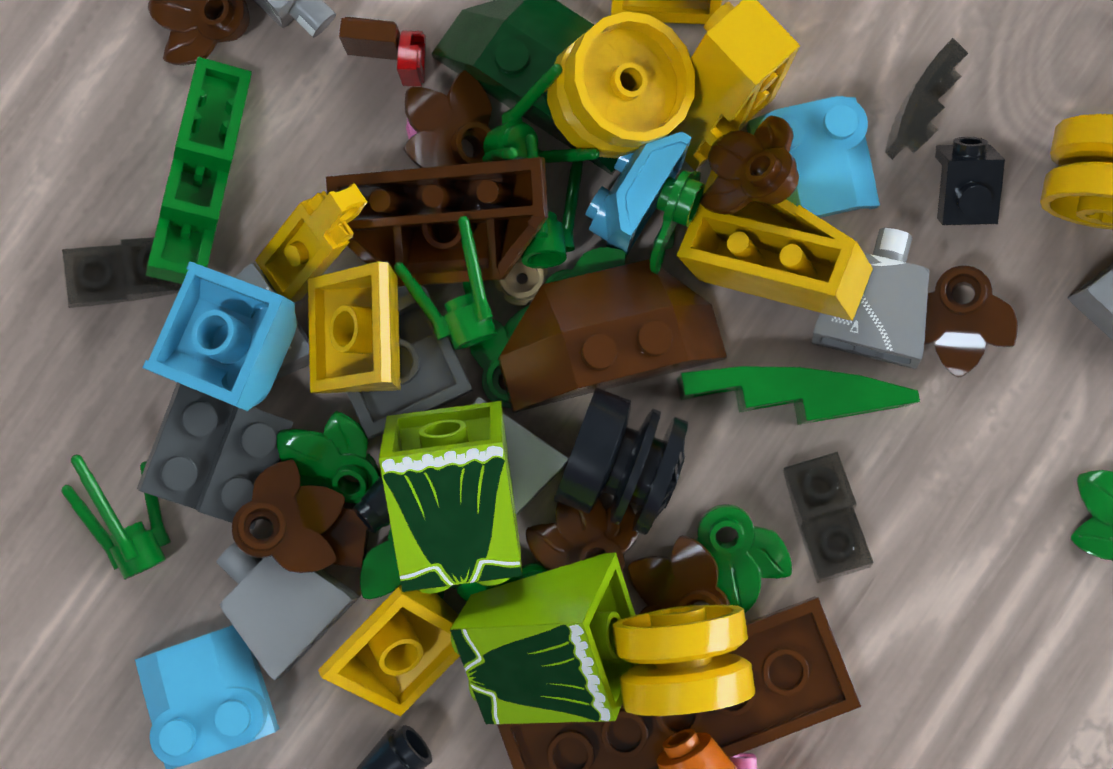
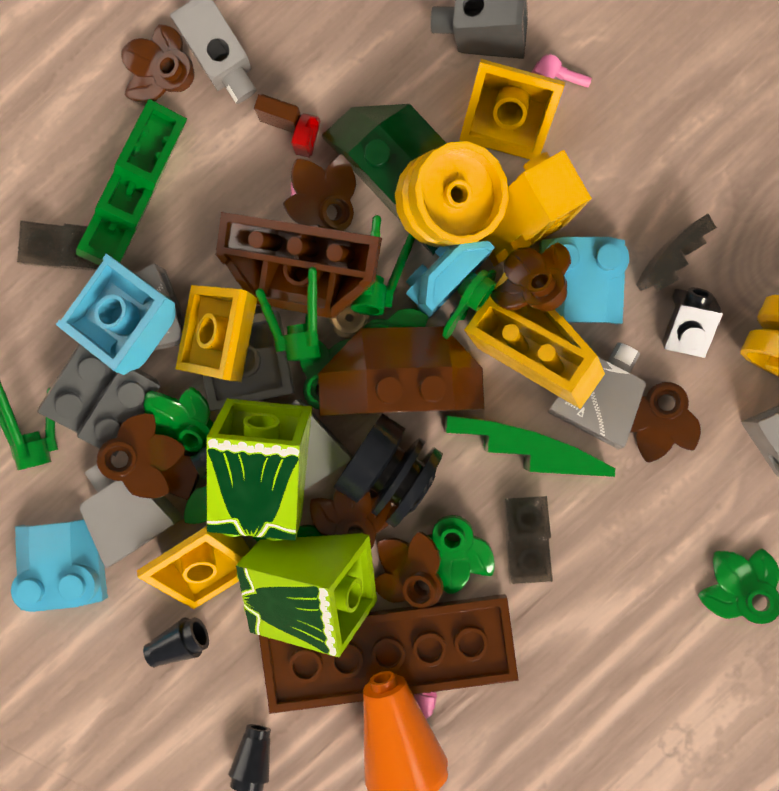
camera: 10 degrees right, 5 degrees up
(310, 240) = (199, 257): yellow hinge -> none
(508, 139) = (359, 215): green plant -> none
(683, 660) = (398, 627): yellow wheel -> none

